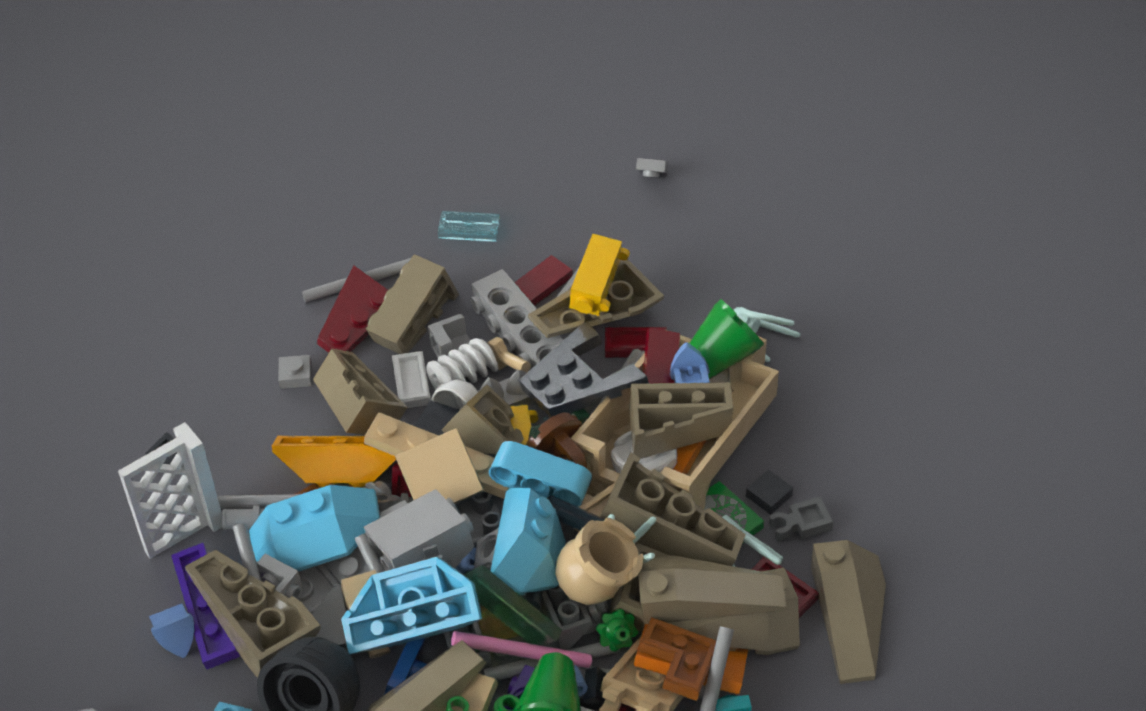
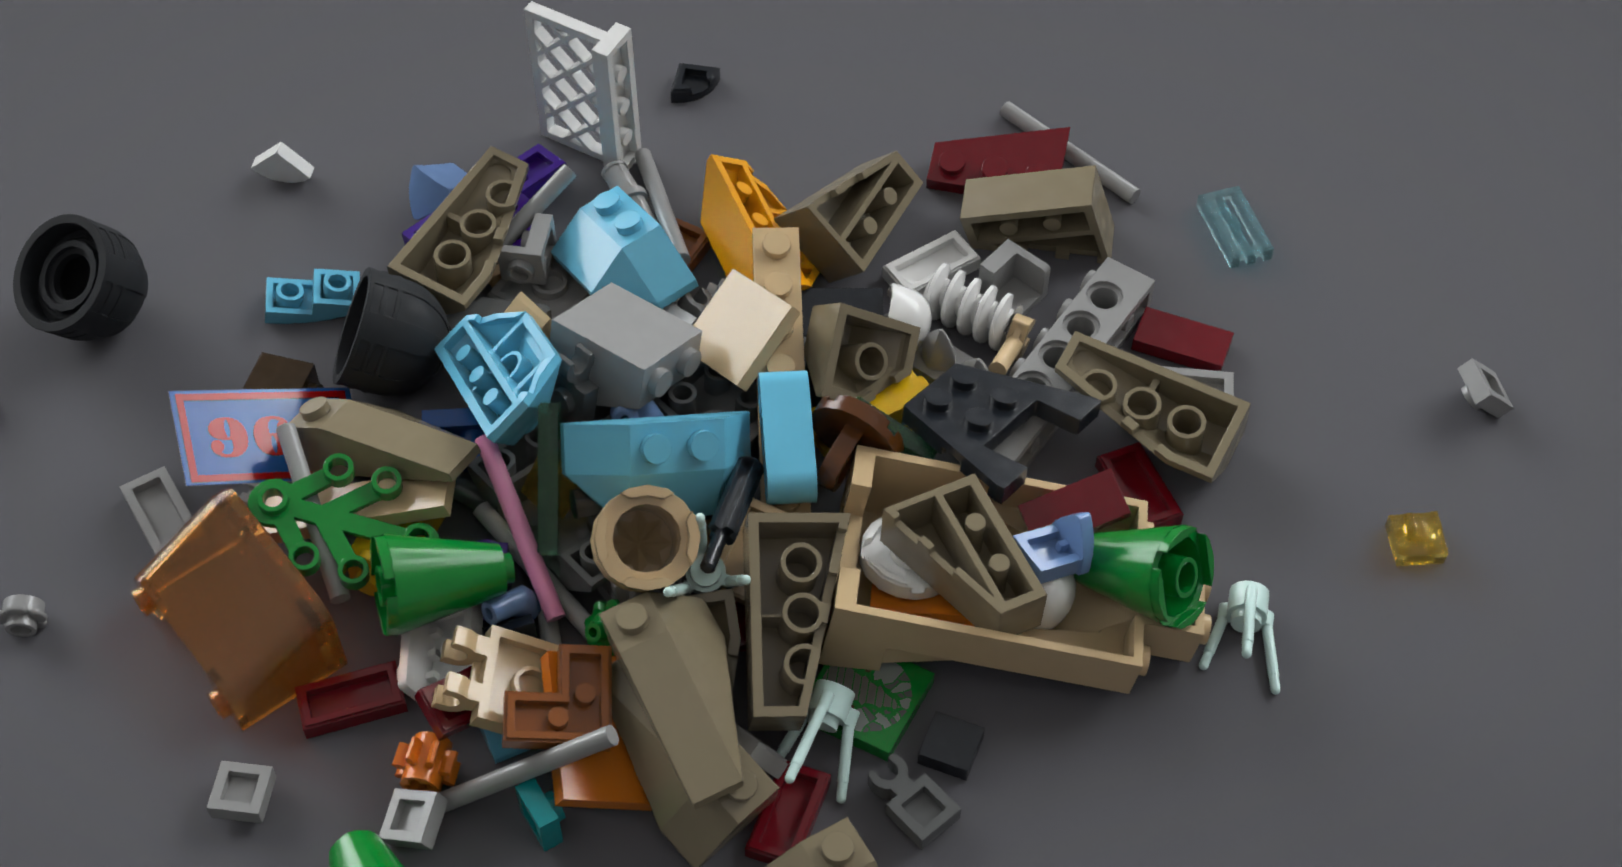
camera: 65 degrees right, 5 degrees up
(294, 371) = (878, 142): light grey plate -> none
(596, 275) = (1178, 374): yellow brick -> none
(731, 235) = (1416, 538): none -> clear yellow tile

